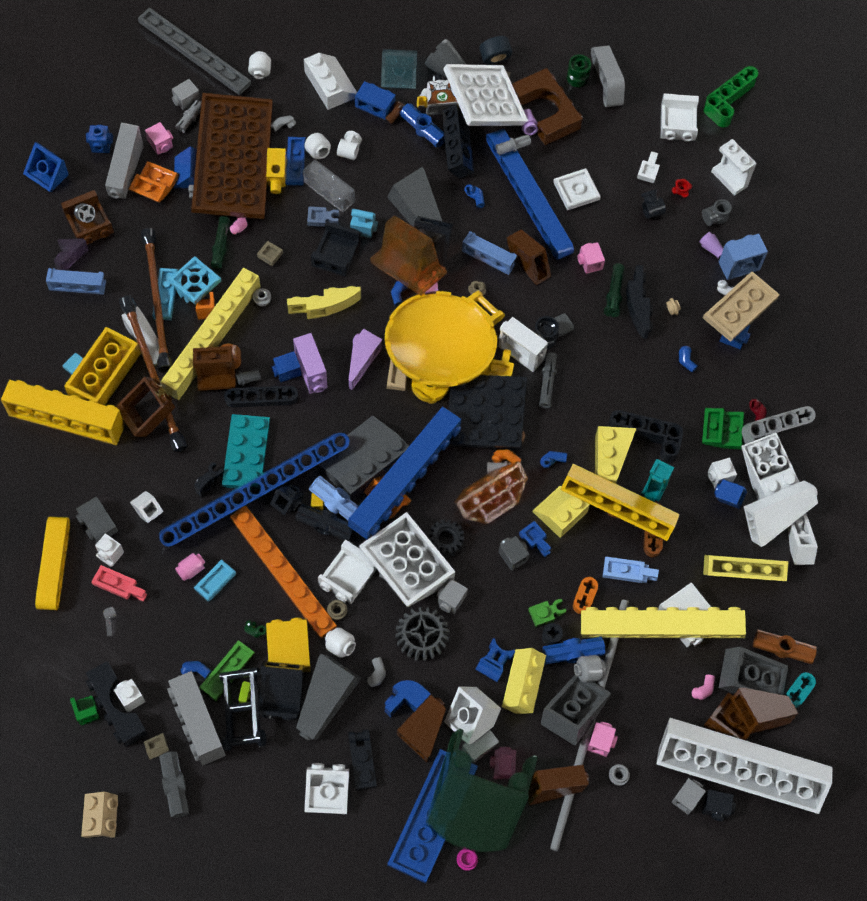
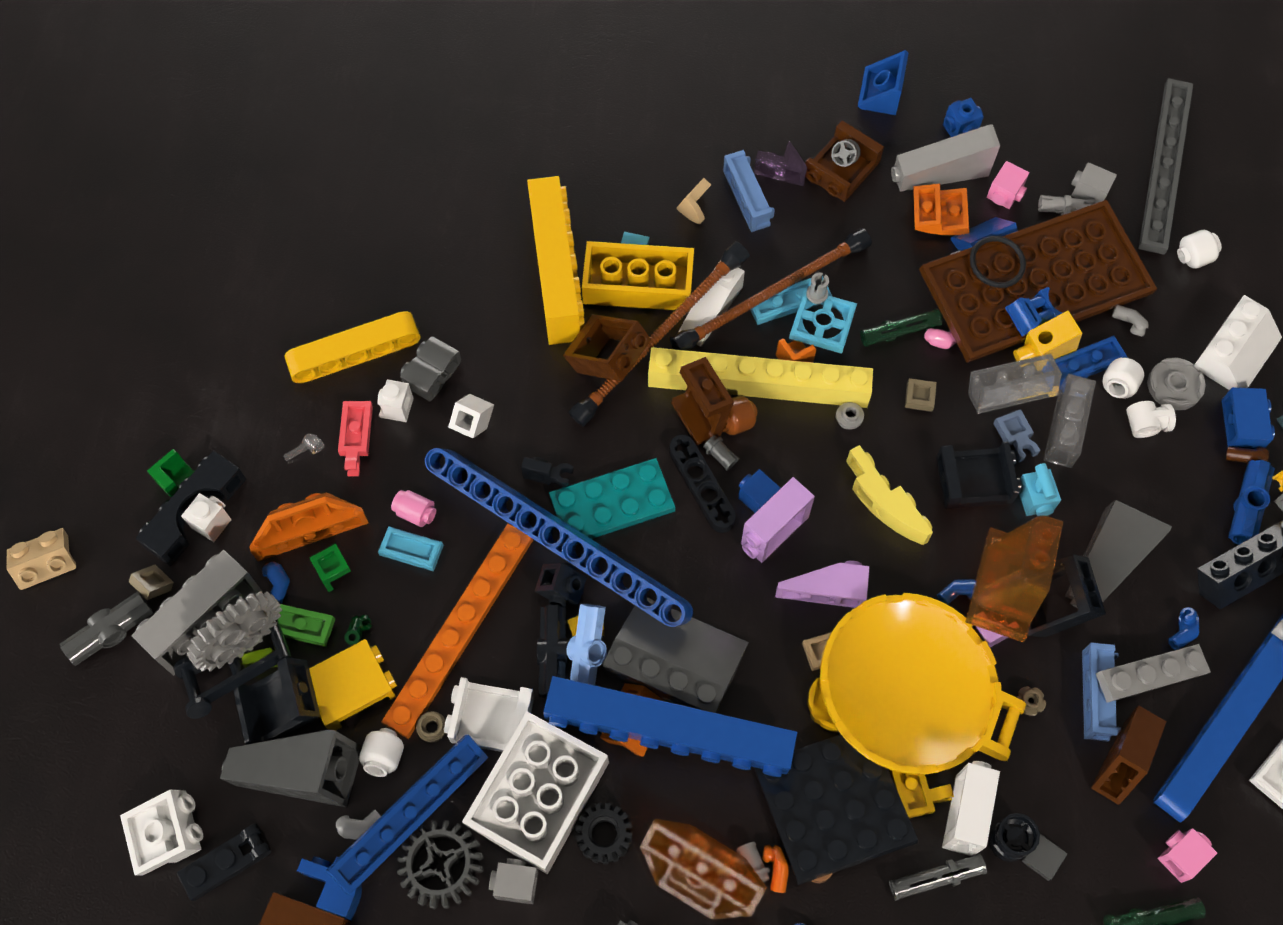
camera: 70 degrees right, 0 degrees up
(63, 316) = (689, 207): none -> tan tile
(165, 634) = (305, 523): none -> orange wedge
(177, 271) = (817, 291): none -> light grey pin
(206, 629) = (330, 565): none -> green panel
(207, 181) = (992, 283): none -> black tyre
(231, 686) = (234, 631): none -> light grey gear
(255, 172) = (1024, 311): none -> blue piece
(291, 201) = (1014, 383): none -> clear brick
(333, 122) = (1176, 383): none -> light grey tile
(387, 637) = (406, 814): none -> blue plate
(492, 222) = (1152, 673): none -> light grey plate

